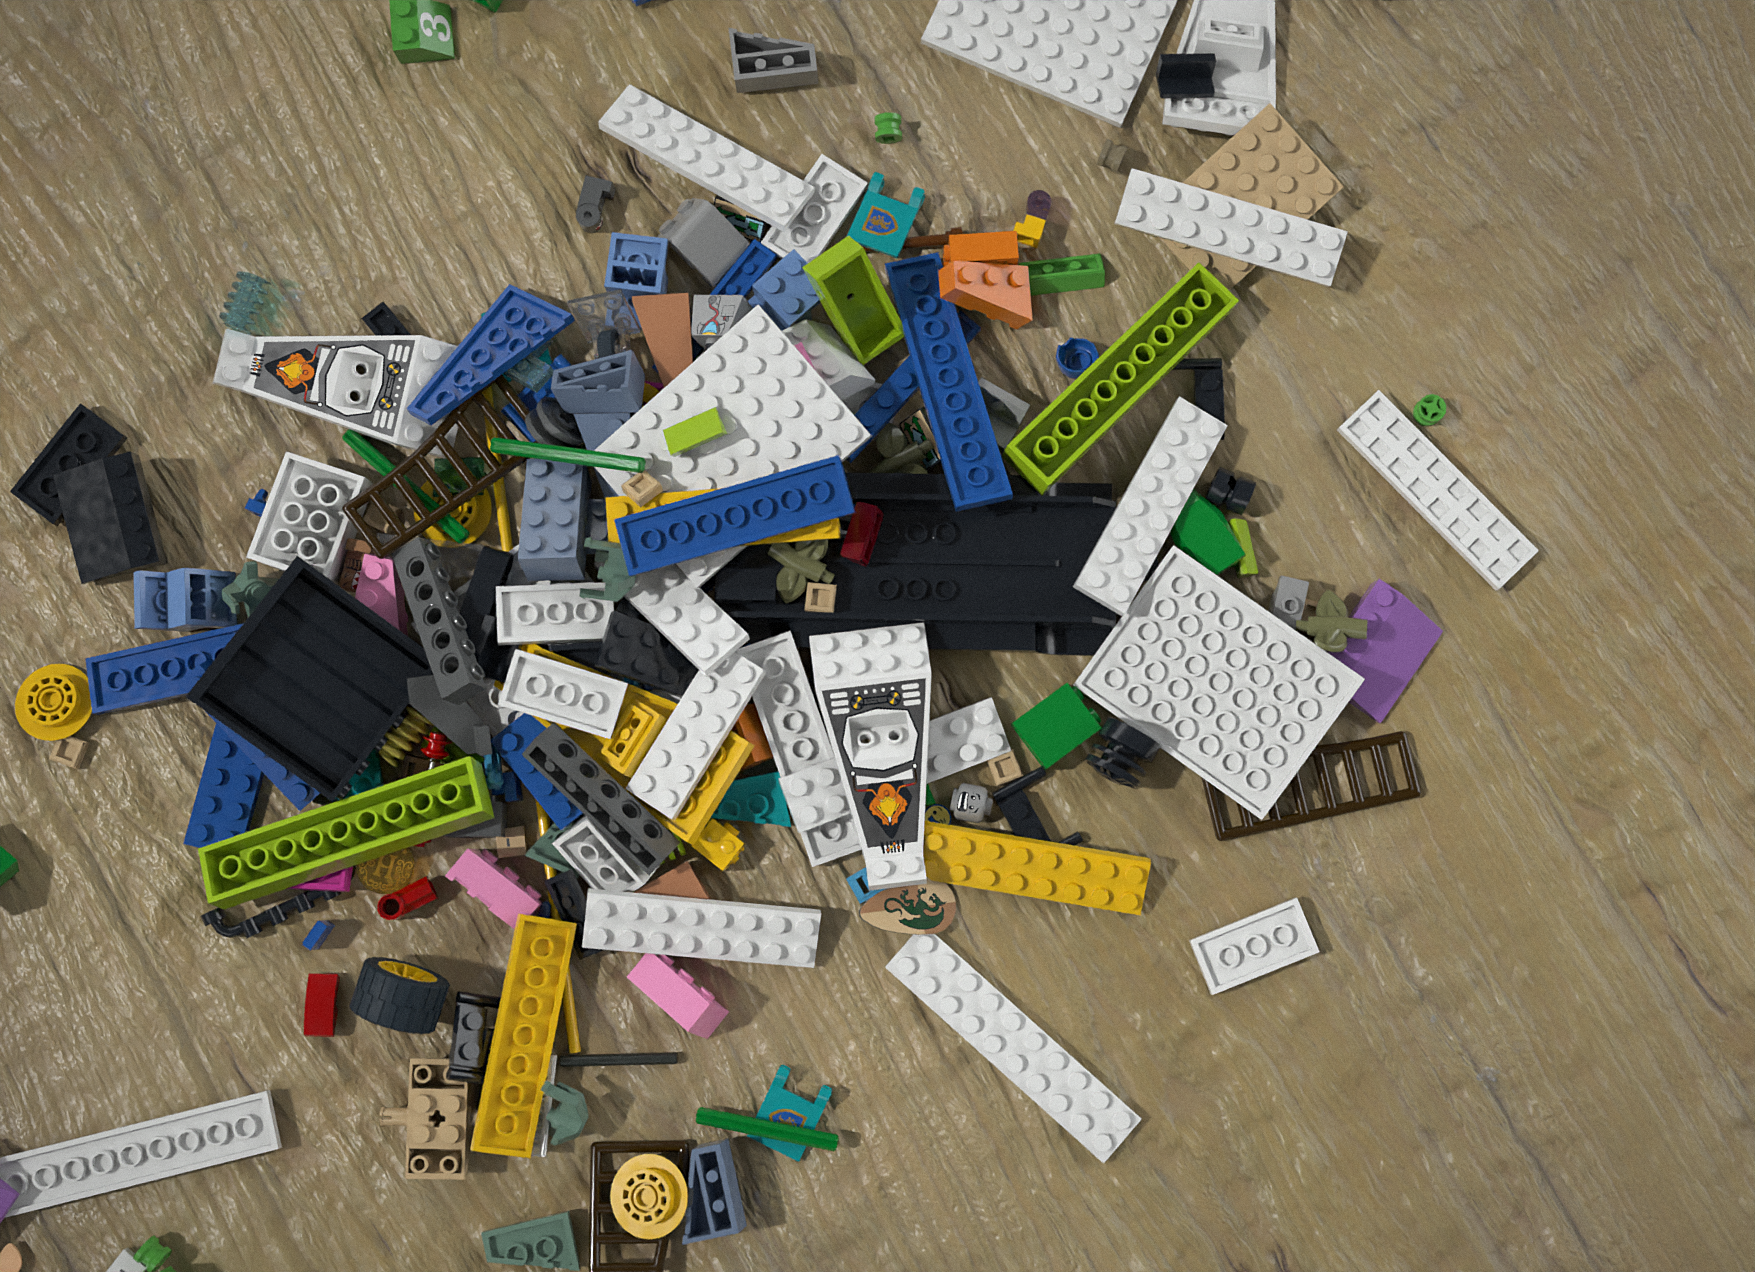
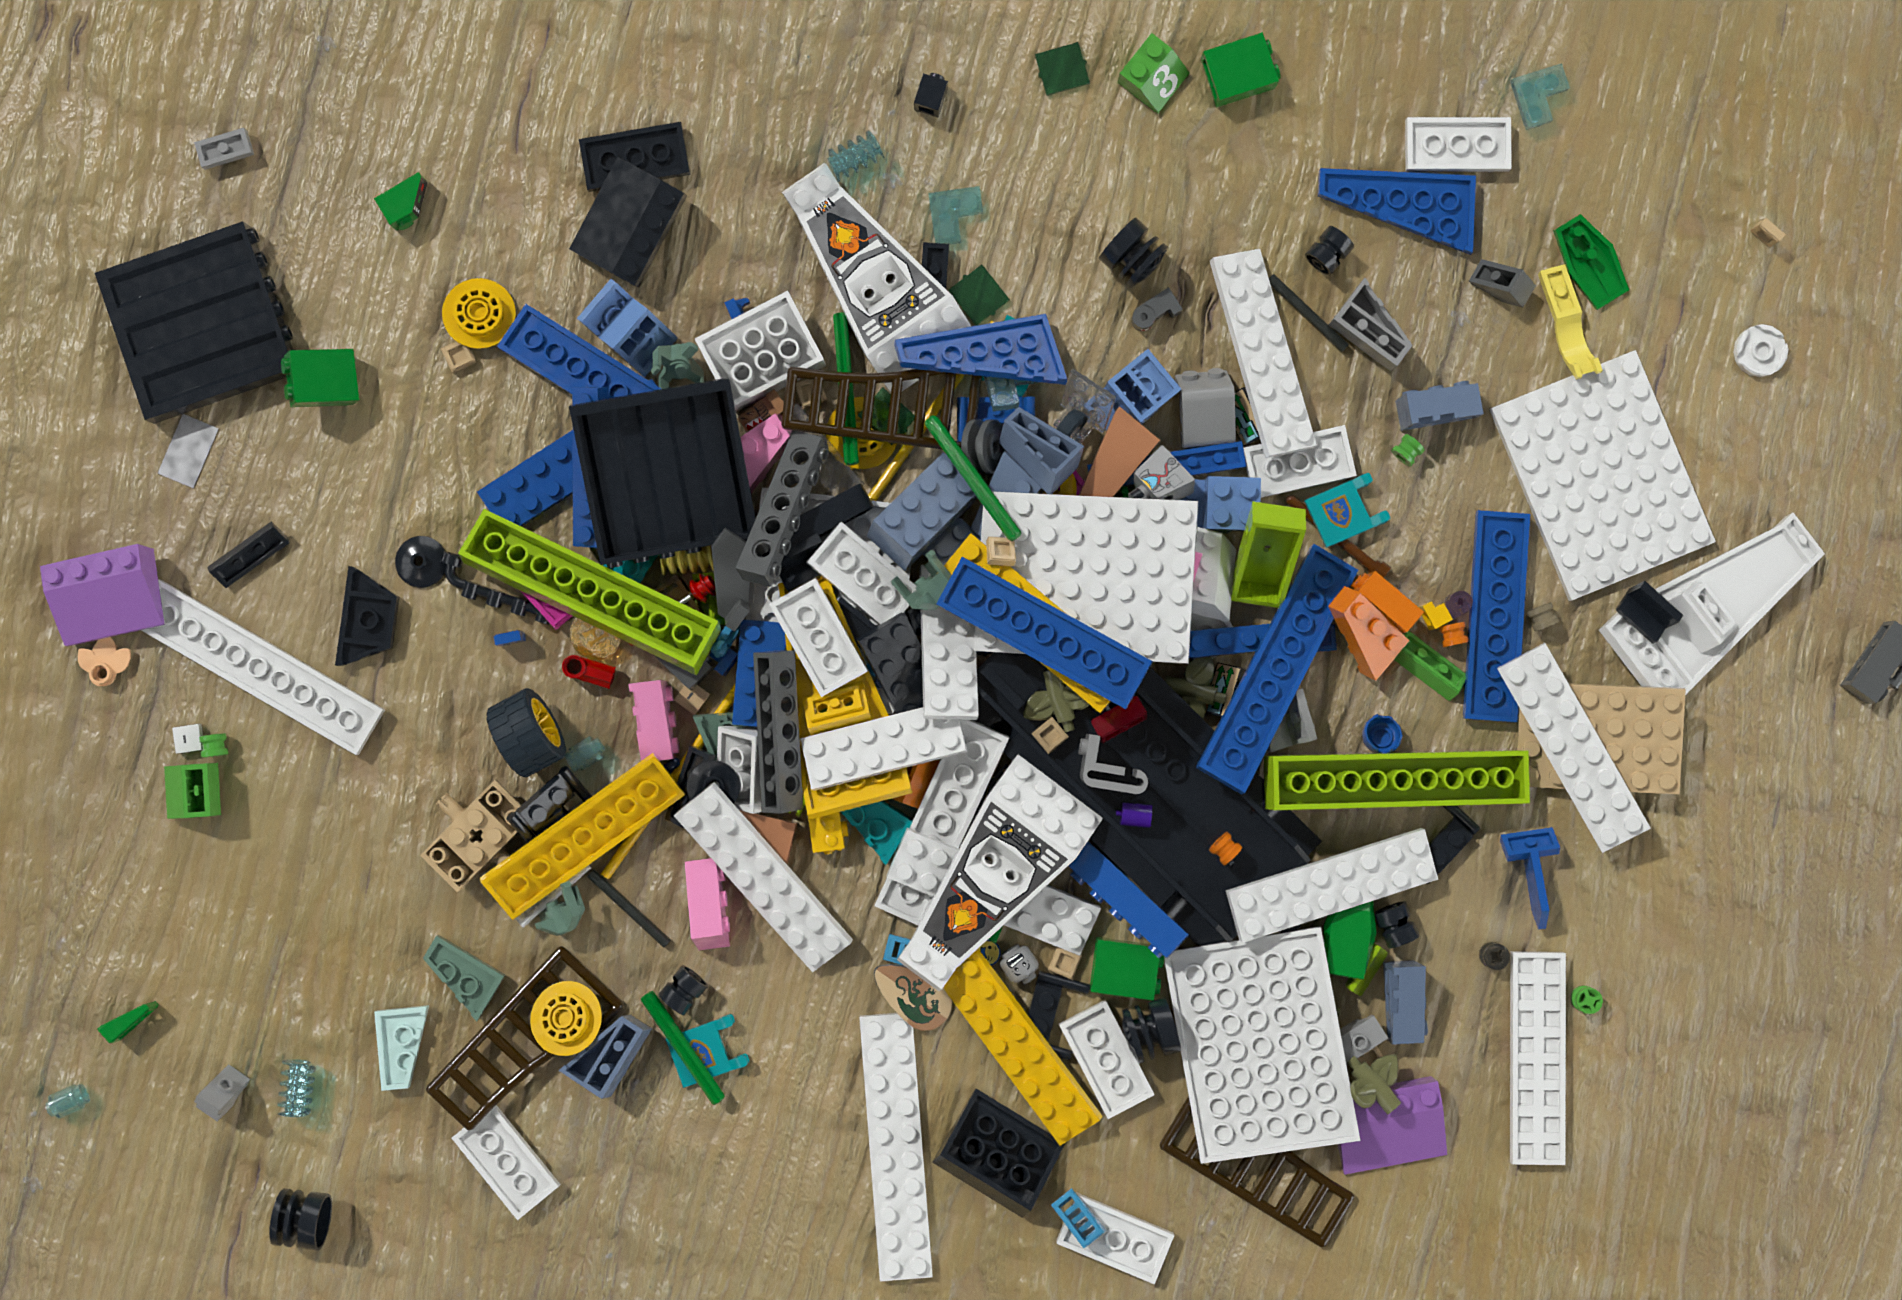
camera: 40 degrees right, 5 degrees up
(39, 1071) = (248, 554): none -> black plate
(186, 1031) = (366, 618): none -> black wing
(203, 945) = (431, 569): none -> black dish
(262, 202) = (931, 94): none -> black brick
(320, 1005) = (469, 686): red slope -> none
(348, 92) = (1062, 69): none -> clear green piece
(357, 275) = (948, 206): none -> clear light blue plate
(445, 318) = (979, 295): none -> clear green piece
(466, 968) = (585, 753): none -> clear light blue brick
(529, 174) = (1133, 252): none -> black wheel
(580, 881) = (714, 770): none -> black dish
(683, 32) = (1332, 247): none -> black wheel
(694, 432) = (1071, 546): lime slope -> none
(712, 98) = (1308, 313): none -> pearl dark grey bar
(723, 1082) = (681, 992): none -> black wheel
(861, 579) = (1089, 748): none -> light grey piece
(879, 73) = (1439, 405): none -> sand blue wedge
(946, 595) = (1135, 814): none -> dark purple piece
(1005, 670) = (1127, 901): none -> blue brick
(1041, 554) = (1225, 848): none -> orange wheel
(1057, 232) = (1453, 634): none -> orange wheel
(1074, 187) = (1496, 612): none -> blue plate
(1098, 968) = (999, 1153): none -> black slope
(1110, 811) = (1106, 1059): none -> white plate
(1235, 951) = (1092, 1220): none -> dark azure slope
(1273, 336) = (1530, 847): none -> blue piece
(1295, 543) = (1405, 1001): none -> sand blue wedge
(1324, 449) = (1489, 952): none -> clear smoke wheel

